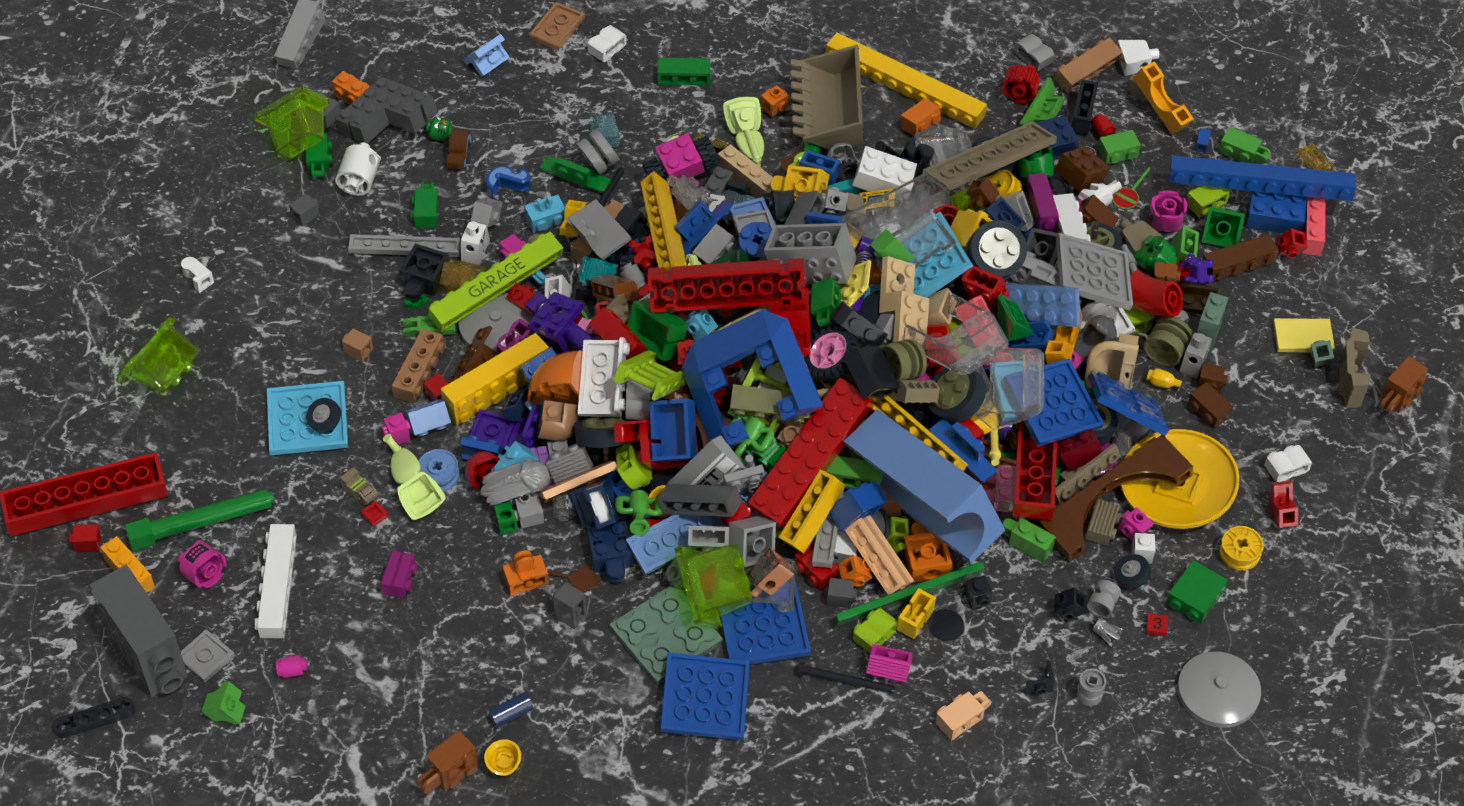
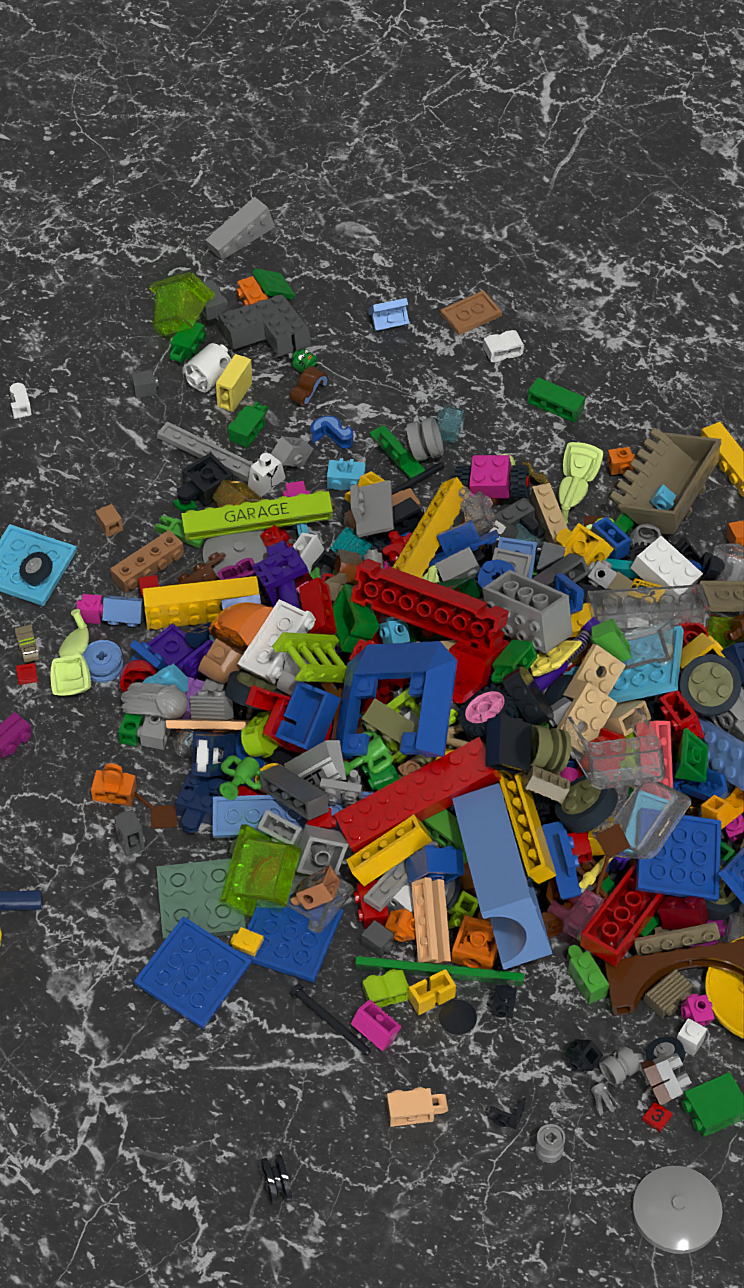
camera: 30 degrees right, 0 degrees up
(363, 70) = (273, 283): none -> green tile
(391, 173) = (234, 382): none -> light yellow brick
(733, 648) = (247, 941): none -> yellow bracket
(834, 117) = (663, 498): none -> medium azure bracket
(1001, 415) = (612, 843): none -> reddish brown piece
(1147, 591) = (662, 1078): none -> hips

